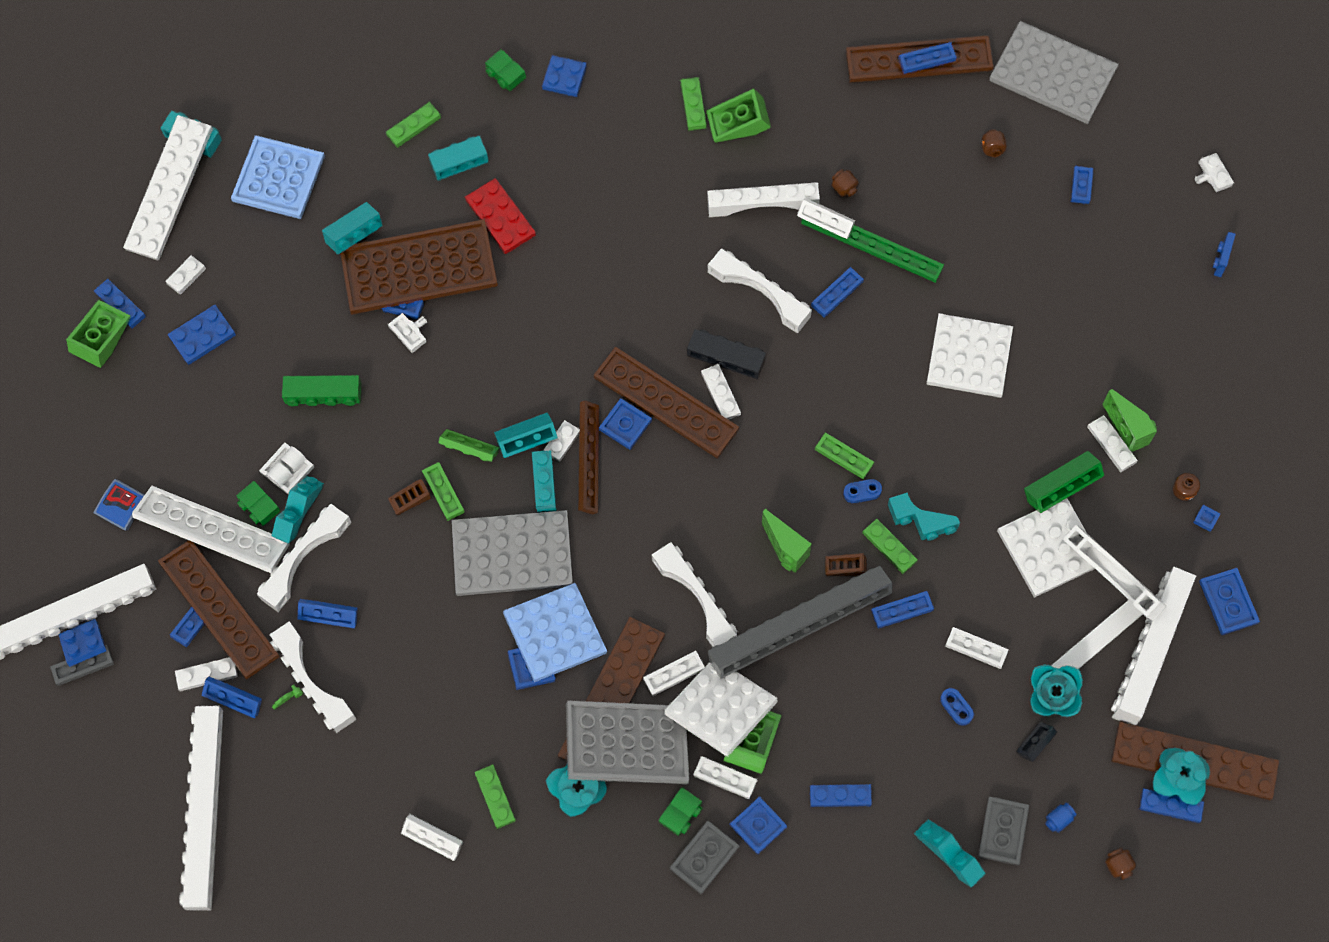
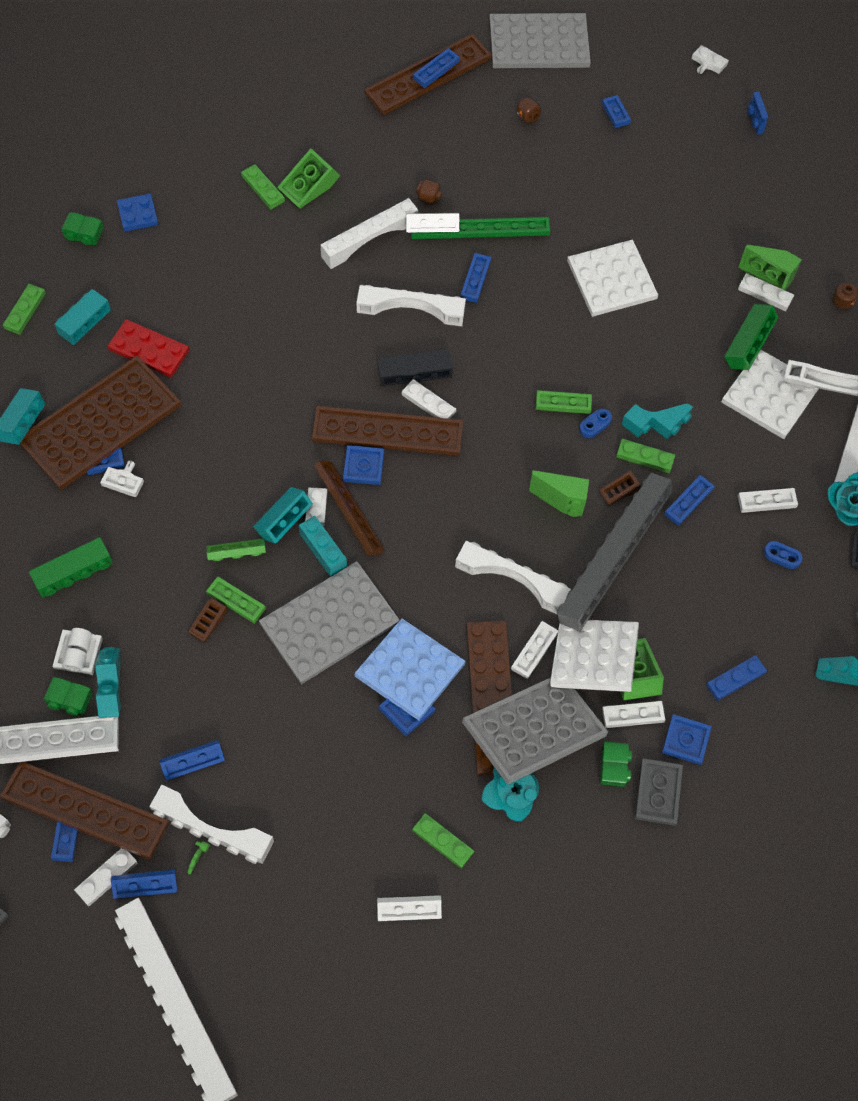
camera: 35 degrees left, 5 degrees down
(278, 587) = (148, 681): white arch -> none

